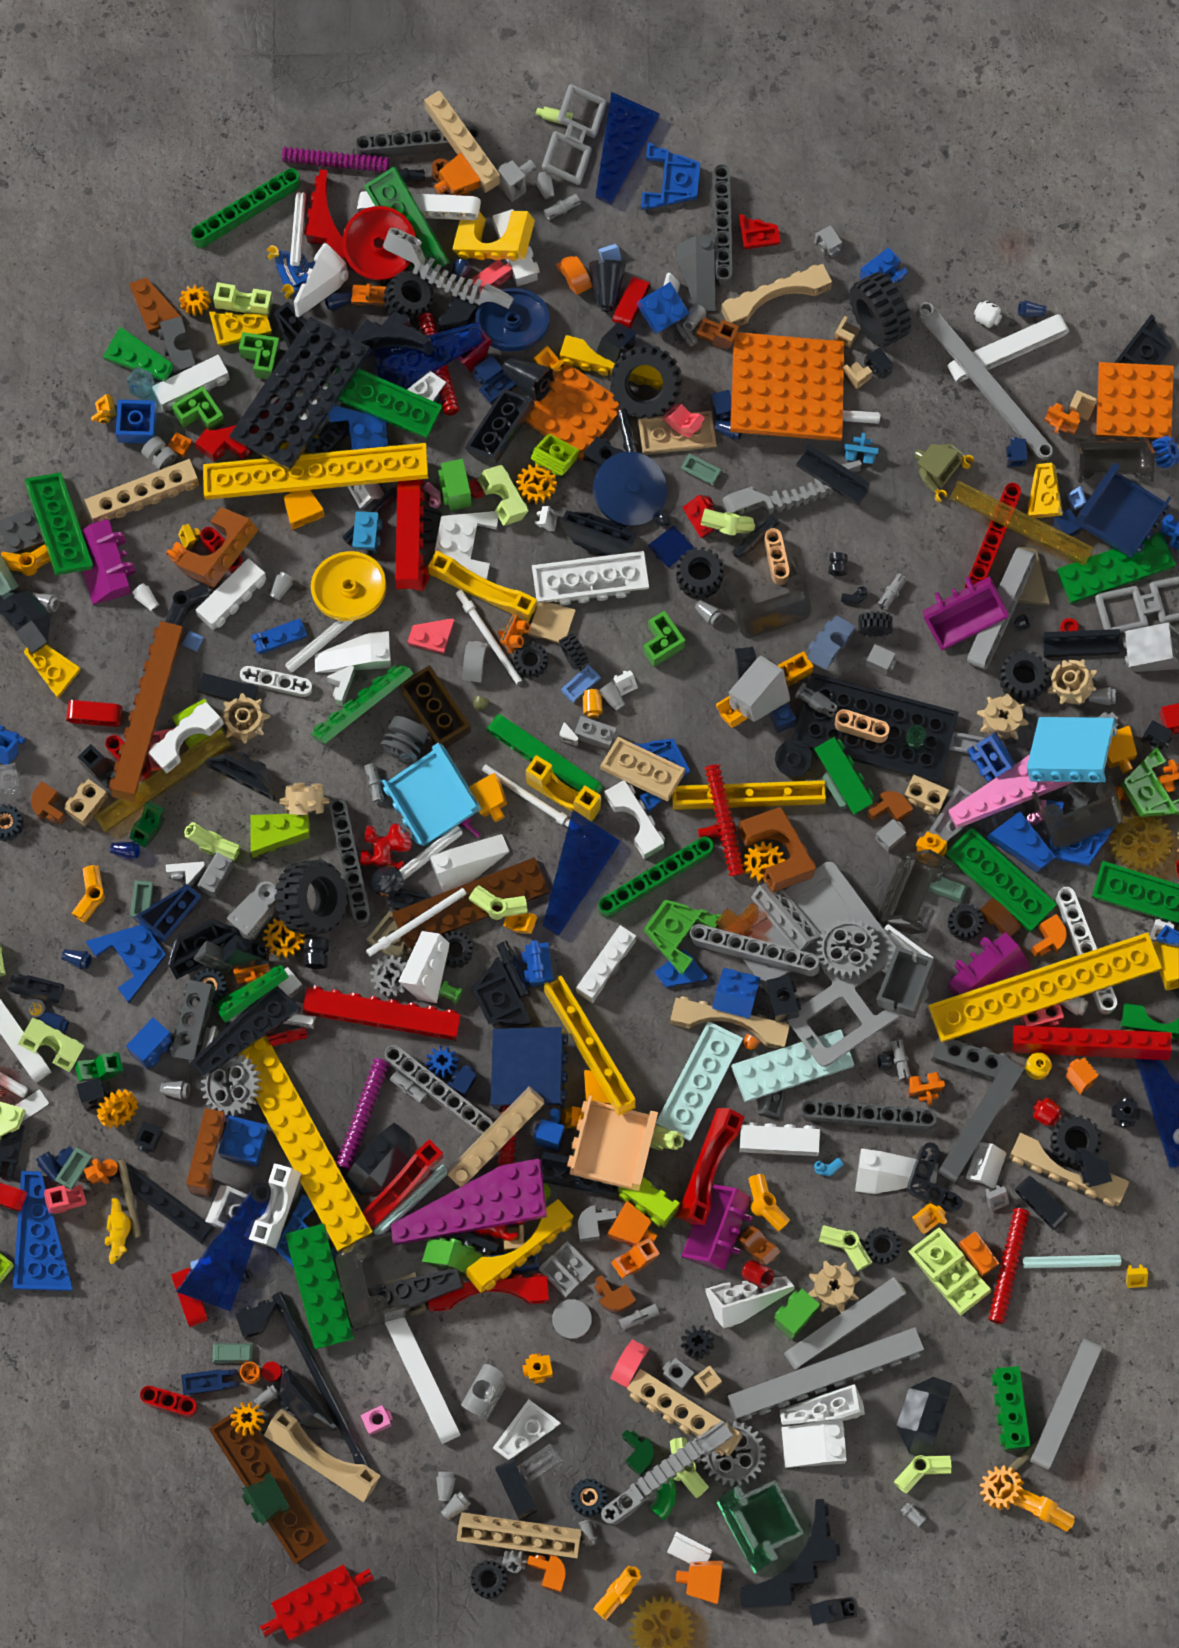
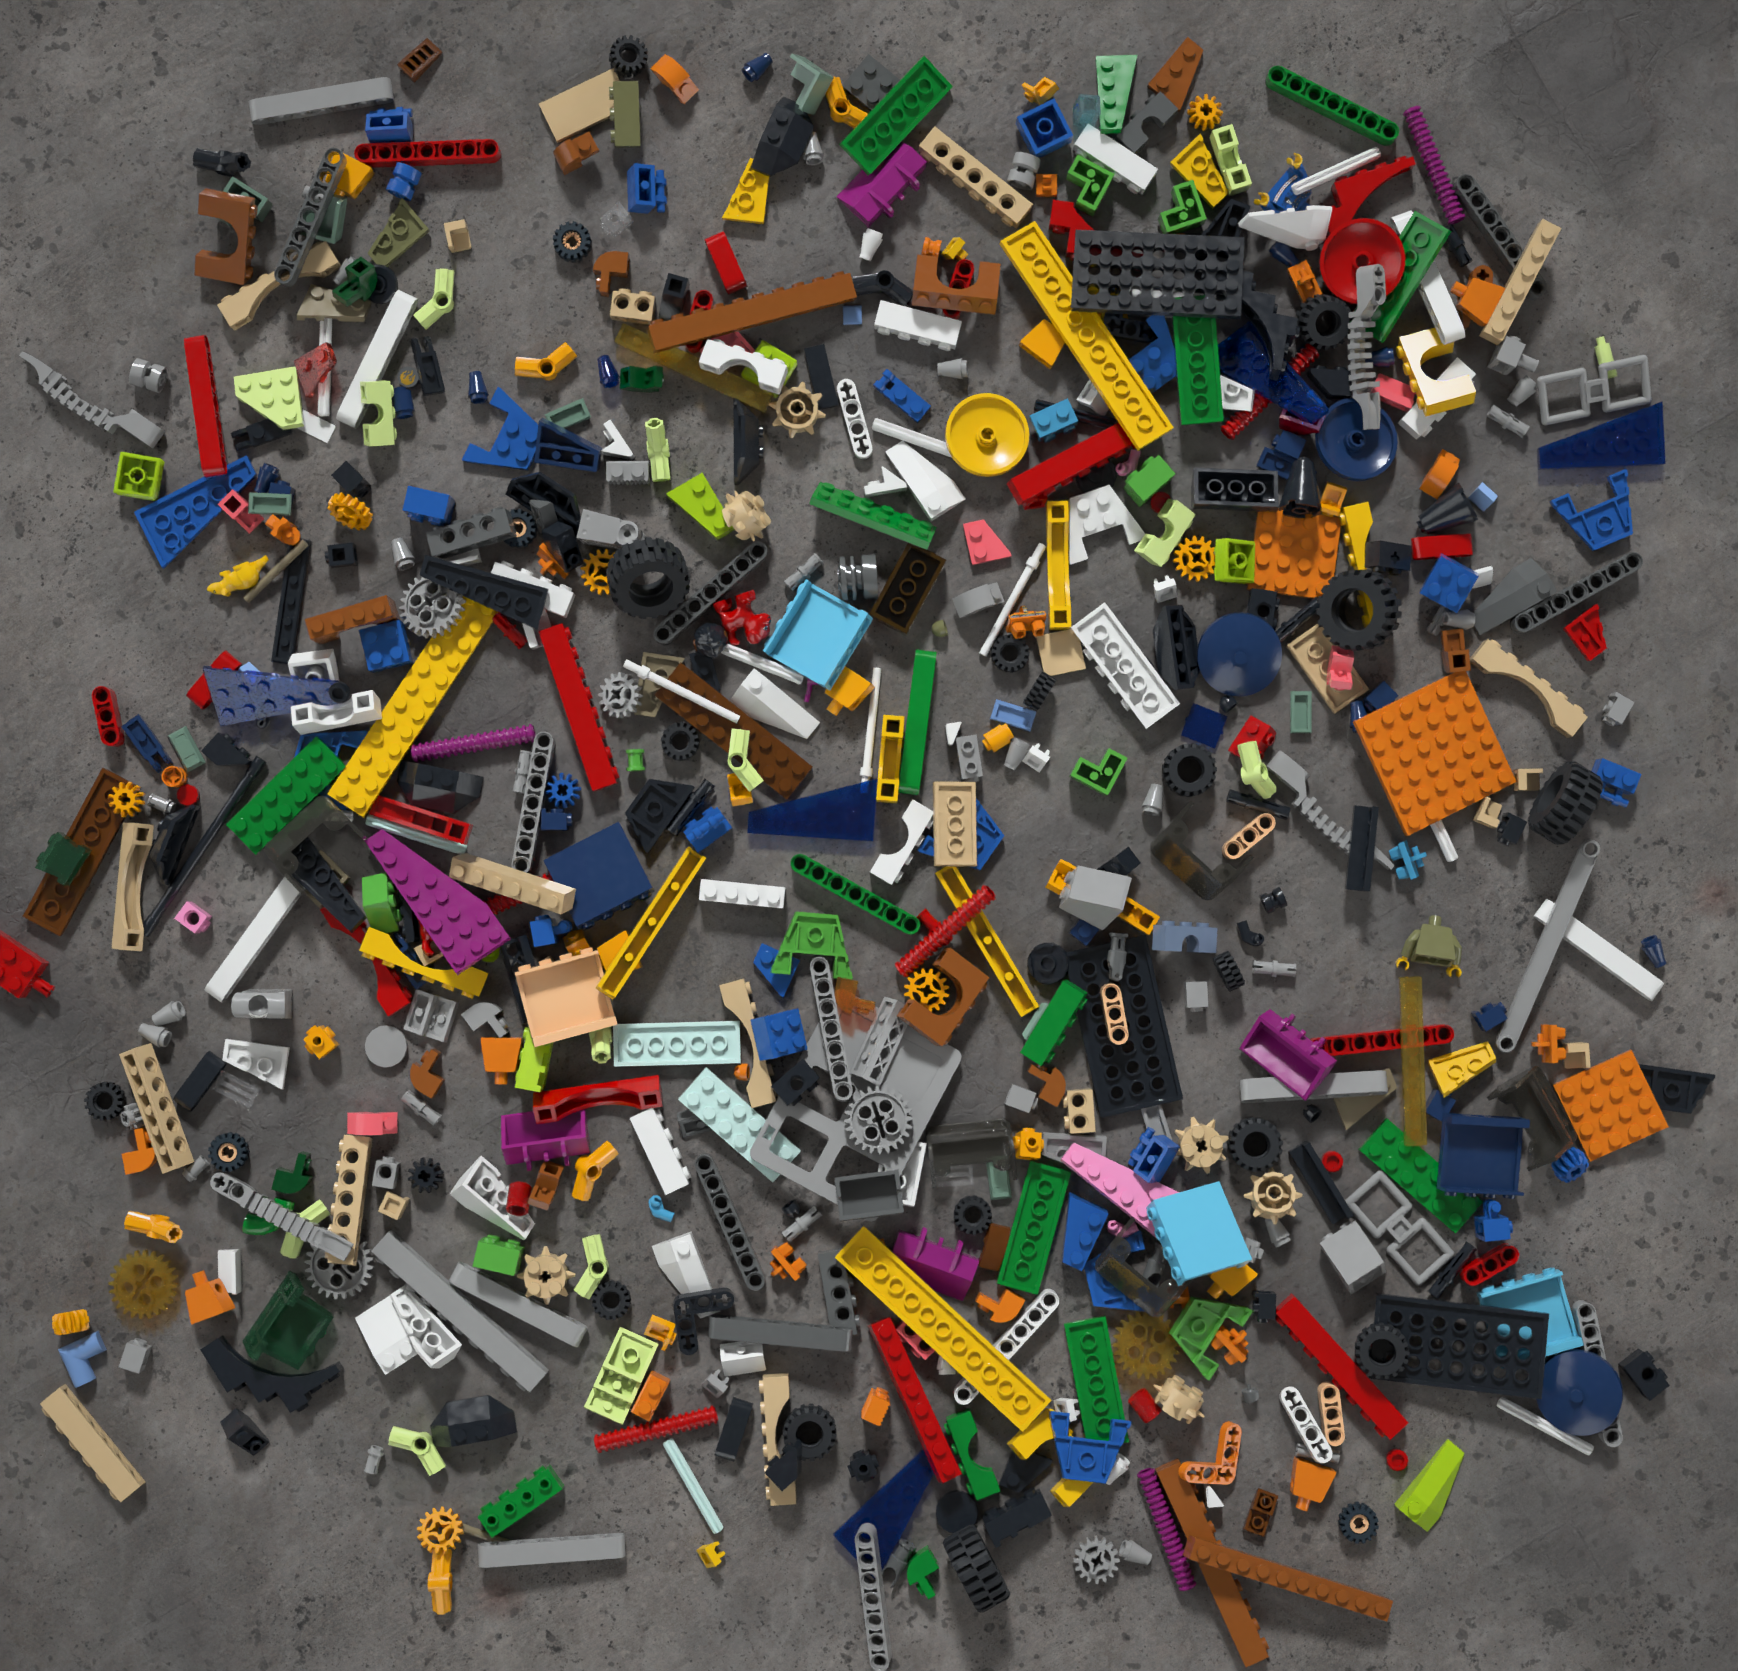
camera: 55 degrees right, 15 degrees up
(103, 1067) = (380, 470): green brick -> none
(248, 994) = (525, 572): green wing -> none
(315, 956) = (603, 611): black wheel -> none
(426, 967) = (643, 724): white wedge -> none
(636, 1259) = (471, 1075): orange brick -> none
(915, 741) = (1131, 1072): clear green wheel -> none
(987, 314) = (1624, 910): white head -> none
(1032, 1064) = (859, 1353): yellow head -> none
(1047, 1112) = (824, 1389): red head -> none
(1077, 499) = (1472, 1101): light blue slope -> none

